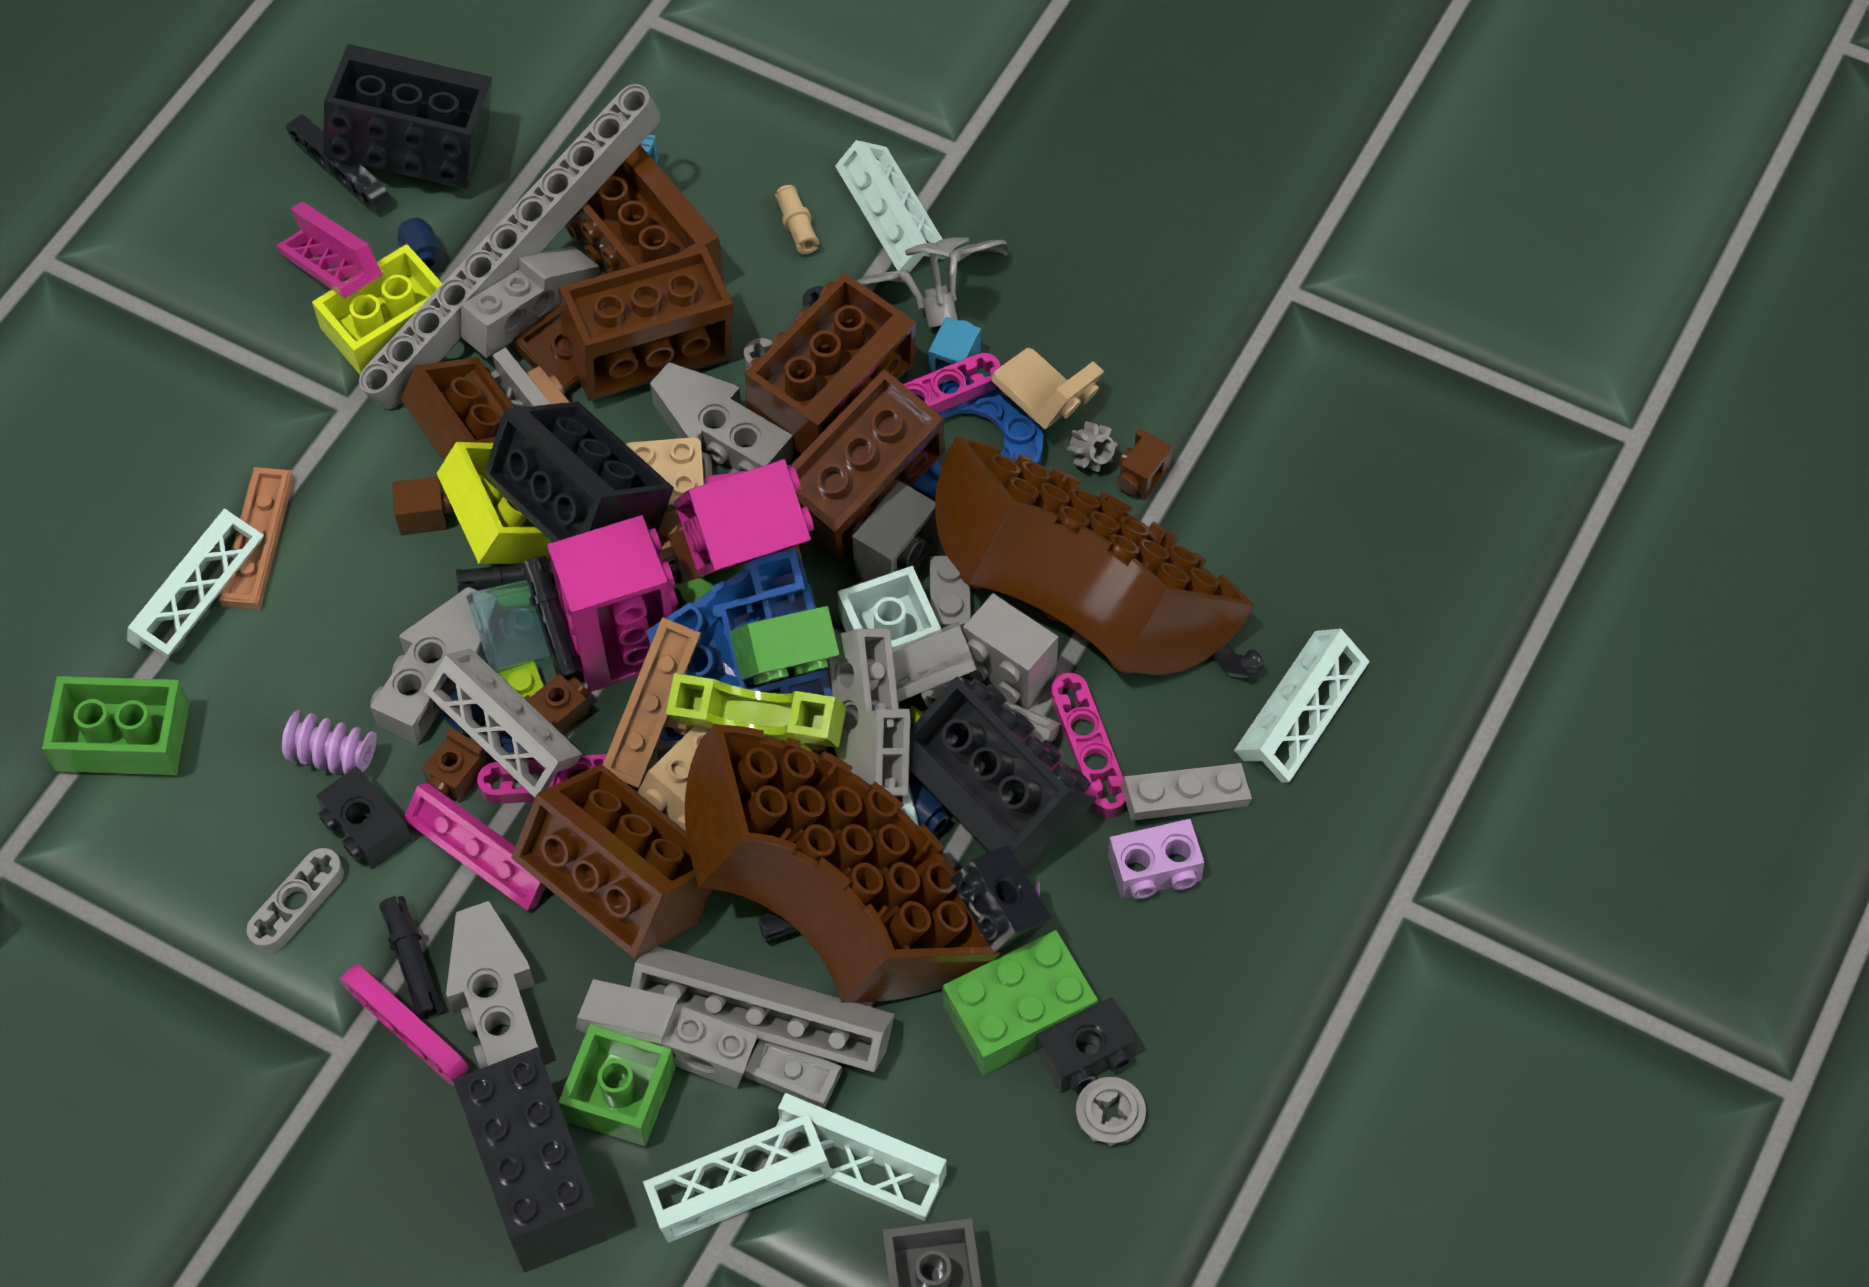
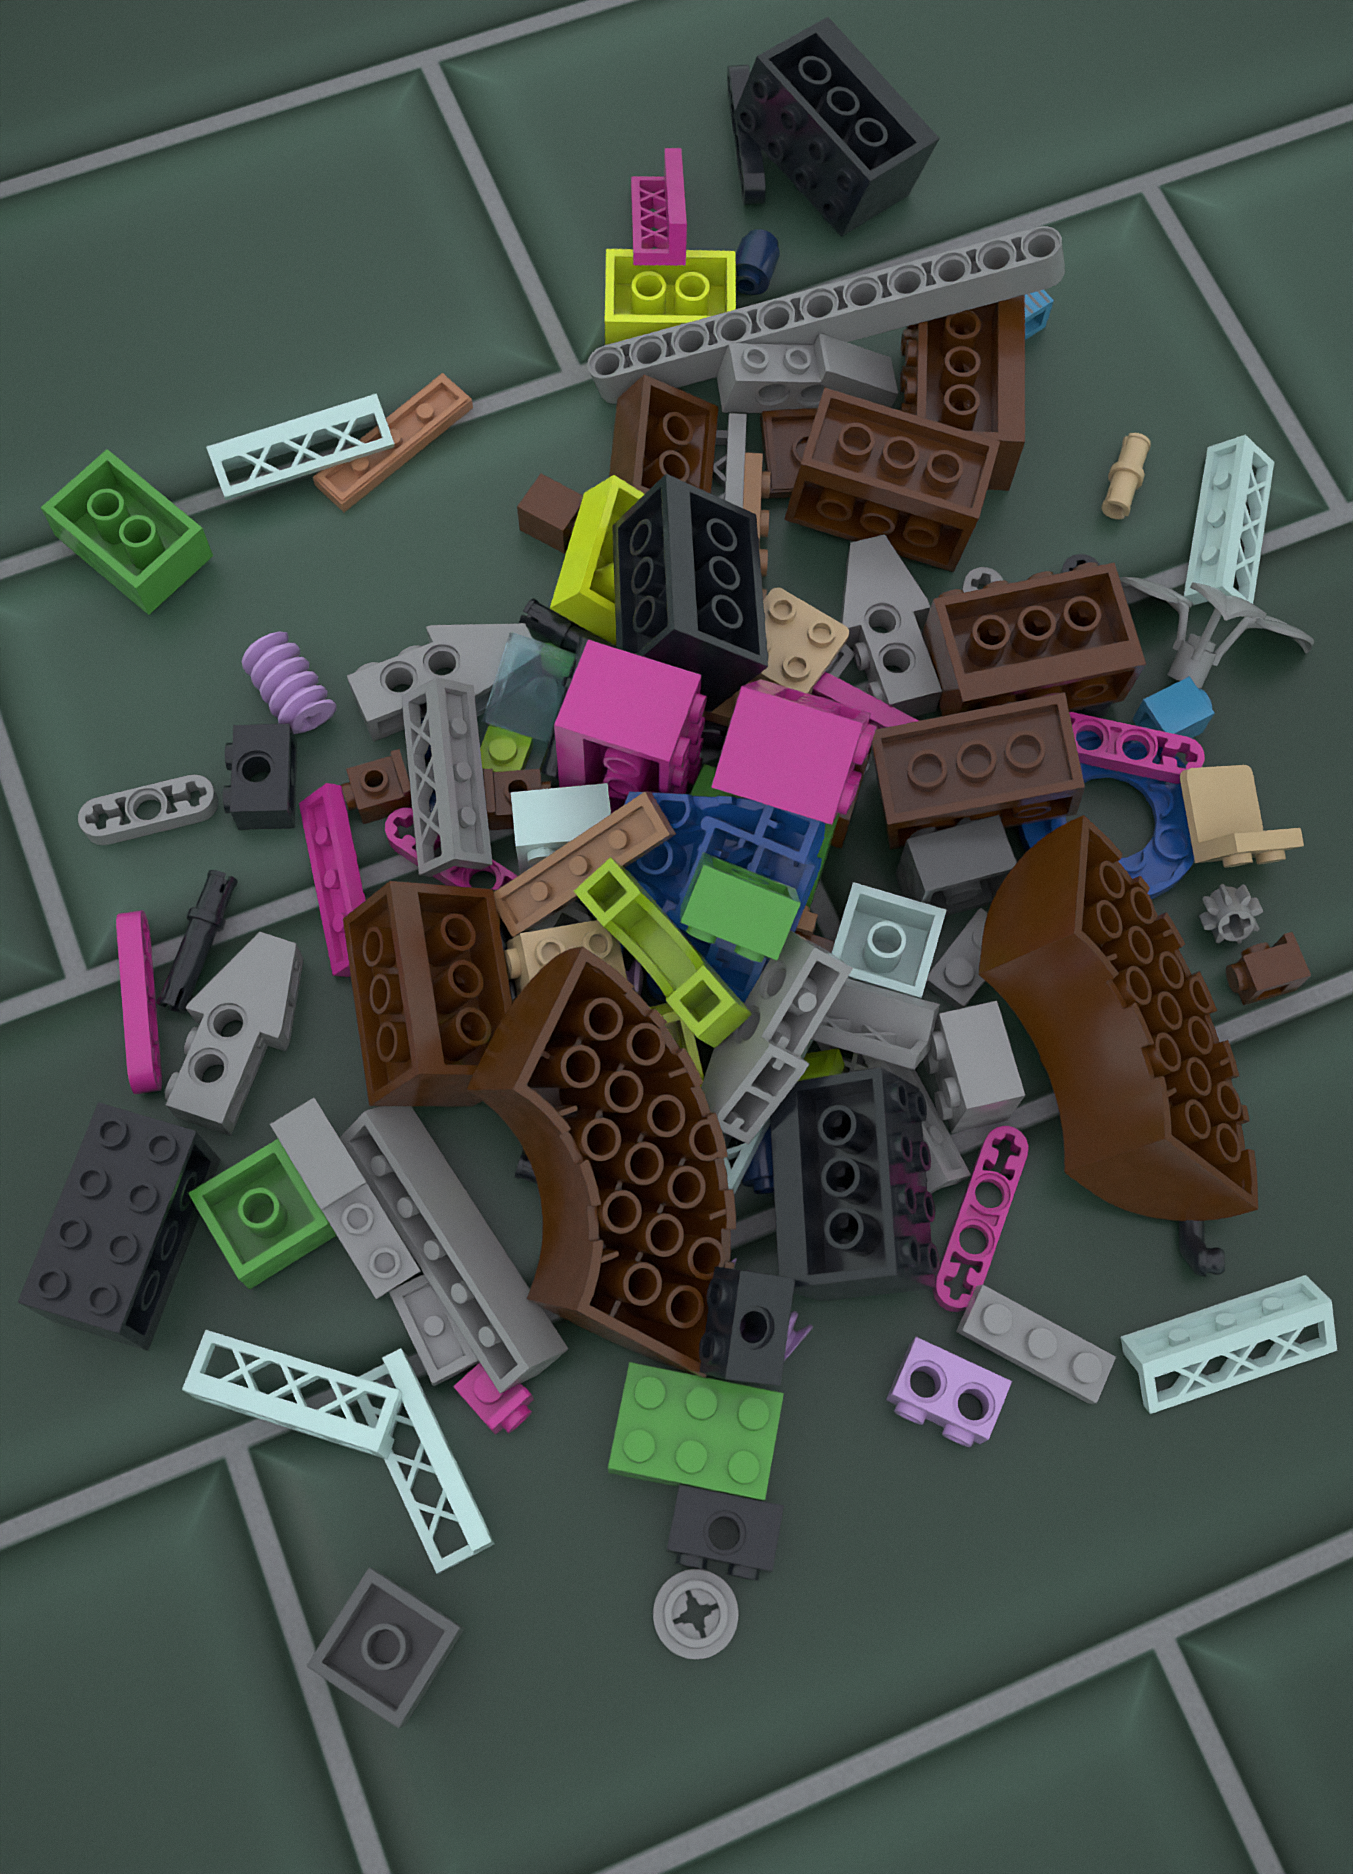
camera: 35 degrees right, 10 degrees up
(601, 695) = (554, 817): none -> light aqua brick
(868, 1088) = (495, 1409): none -> dark pink bracket

